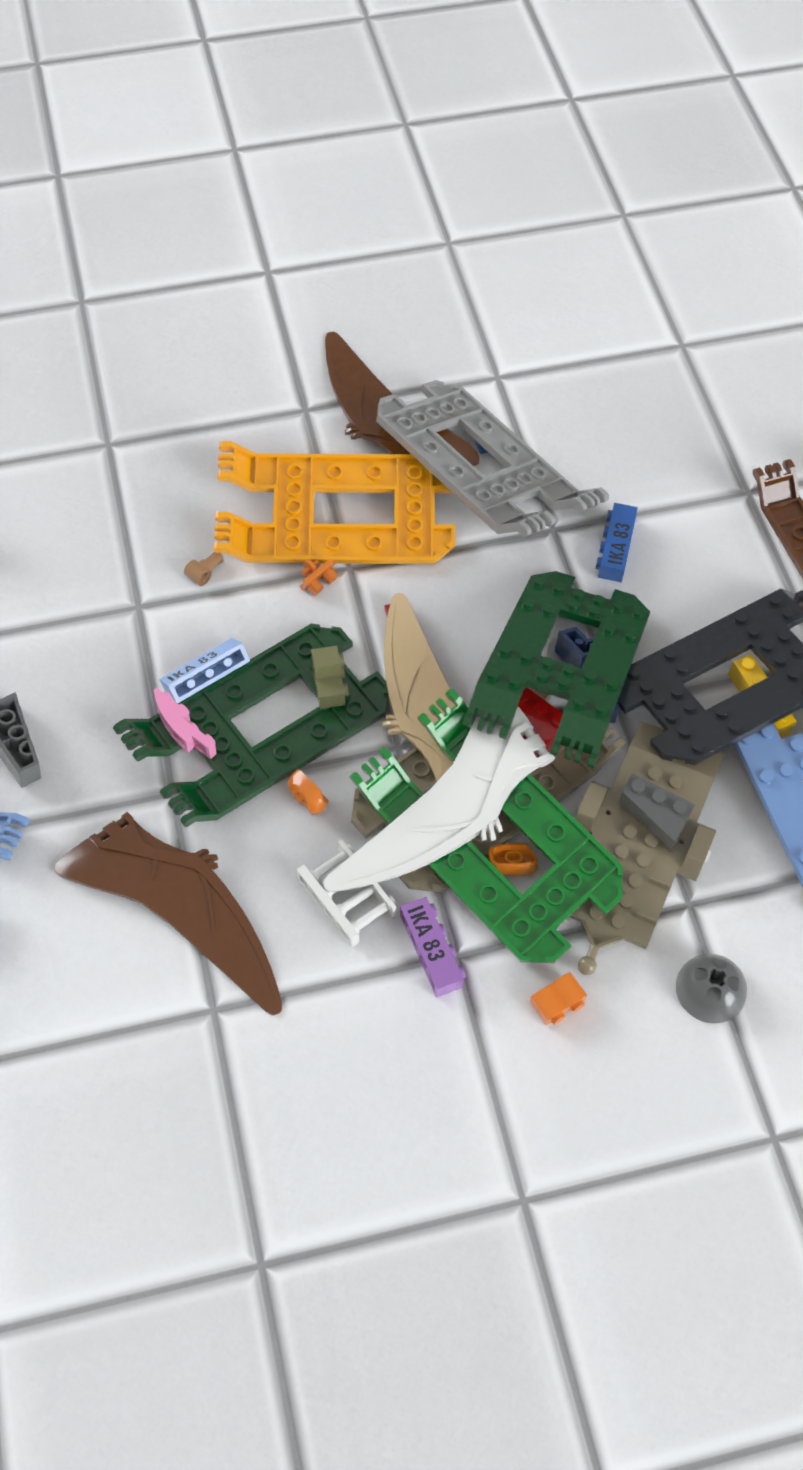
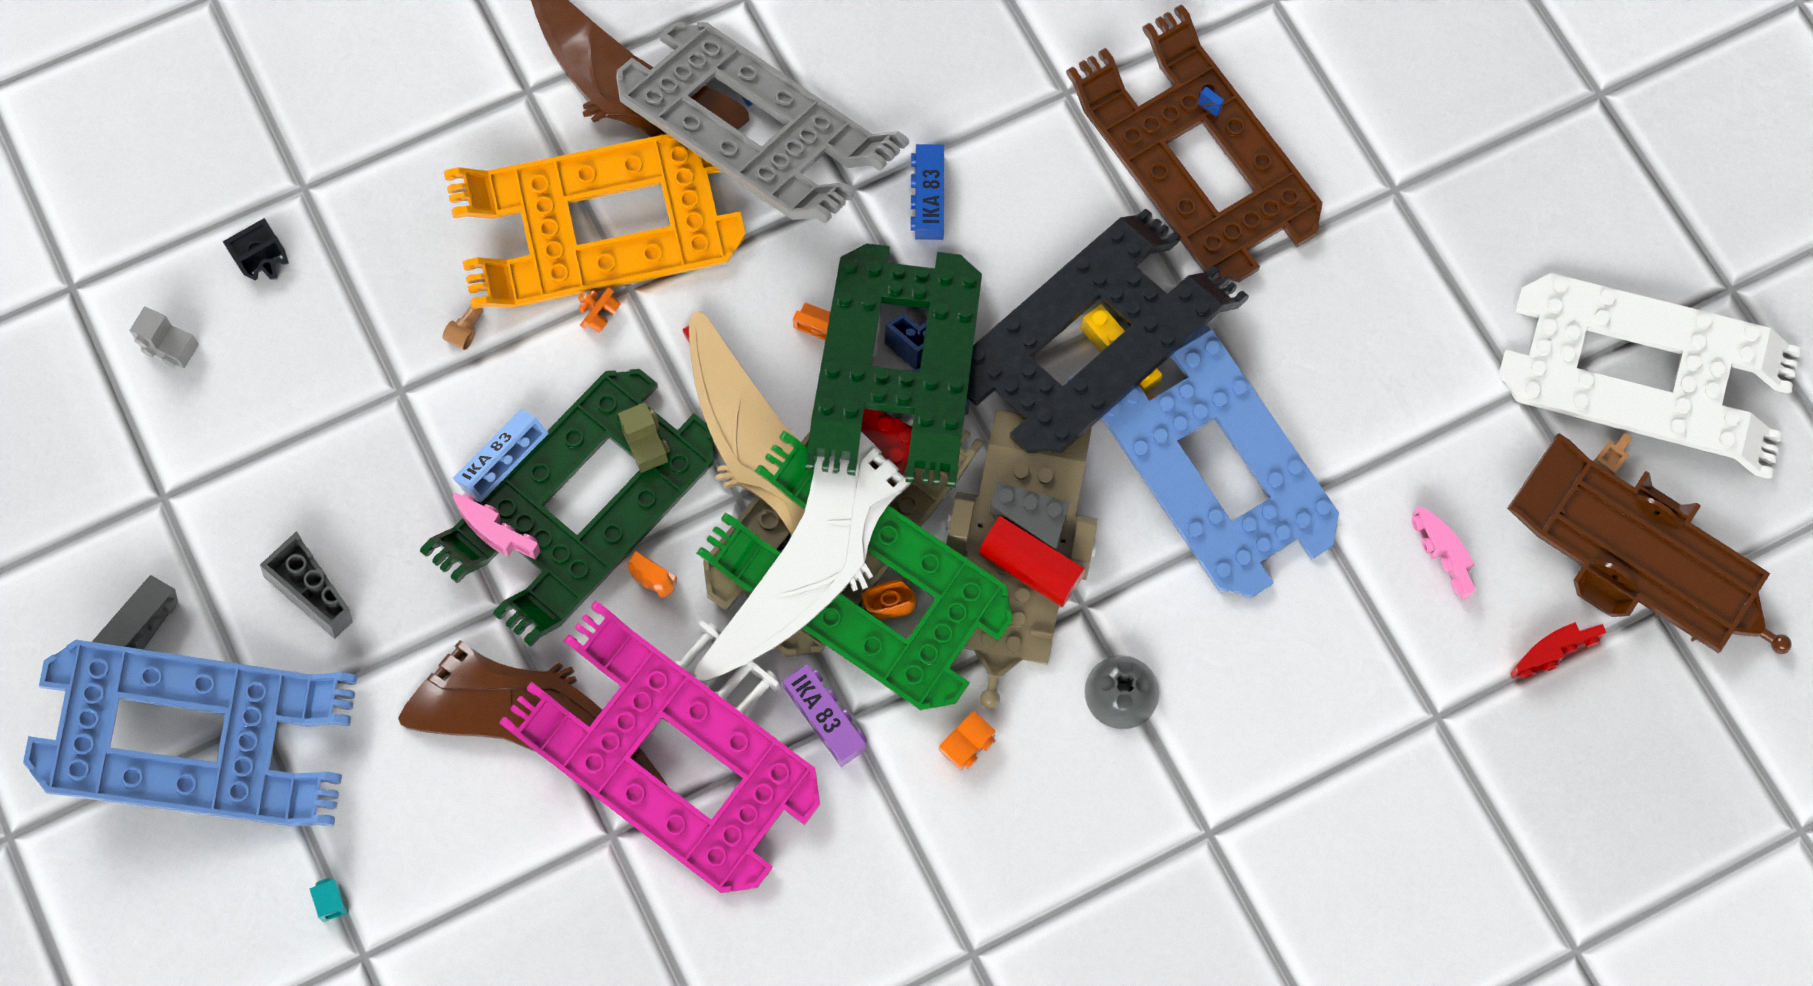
camera: 15 degrees left, 10 degrees up
(55, 479) = (256, 250): none -> black plate
(279, 887) = (602, 763): none -> dark pink bracket
(493, 620) = (812, 320): none -> orange panel
(650, 850) = (1031, 561): none -> red brick

